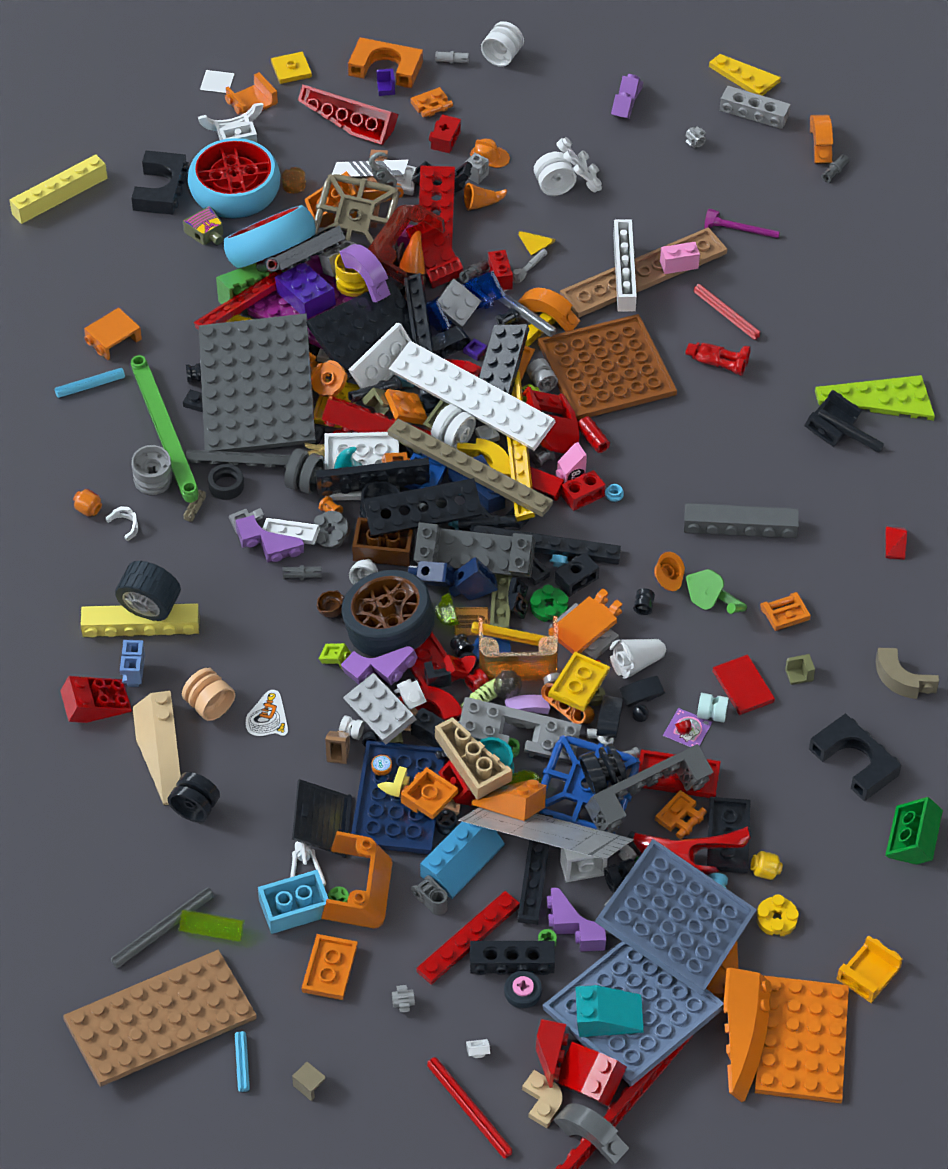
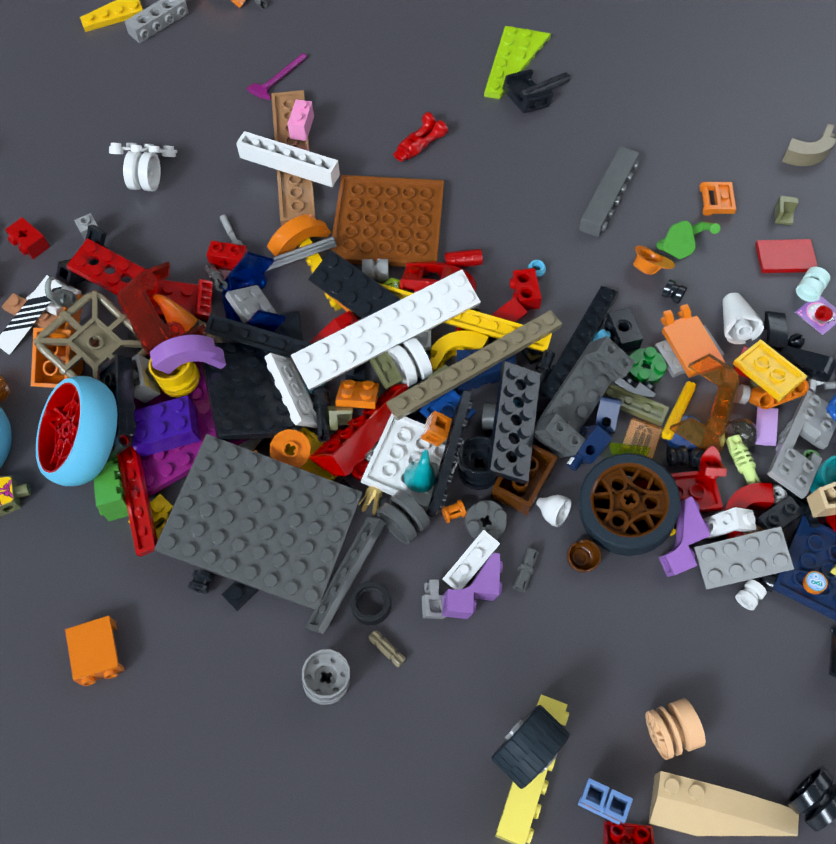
camera: 65 degrees left, 10 degrees up
(87, 502) = (334, 770): orange head -> none
(90, 382) = (150, 704): medium azure axle -> none
(131, 516) = (376, 723): white helmet -> none
(164, 428) = (264, 641): bright green piece -> none
(267, 716) = (702, 675): sticker -> none
(334, 654) = (650, 576): lime bracket -> none
(337, 746) = (776, 615): medium nougat slope -> none
(436, 678) = (718, 490): black panel -> none
(475, 349) = (309, 313): dark purple tile -> none
(476, 680) = (726, 457): red wheel -> none
(478, 197) = (126, 241): orange hat -> none
(487, 148) = (69, 212): orange piece -> none
(508, 317) = (288, 273): black bush -> none
(534, 242) = (207, 219): yellow slope -> none
(572, 463) = (498, 284): bright pink slope -> none
(628, 92) = (78, 86): medium lavender arch -> none
(695, 137) = (163, 64): light grey gear -> none
(727, 312) = (369, 117): axle -> none
(895, 542) = (668, 102): red slope -> none

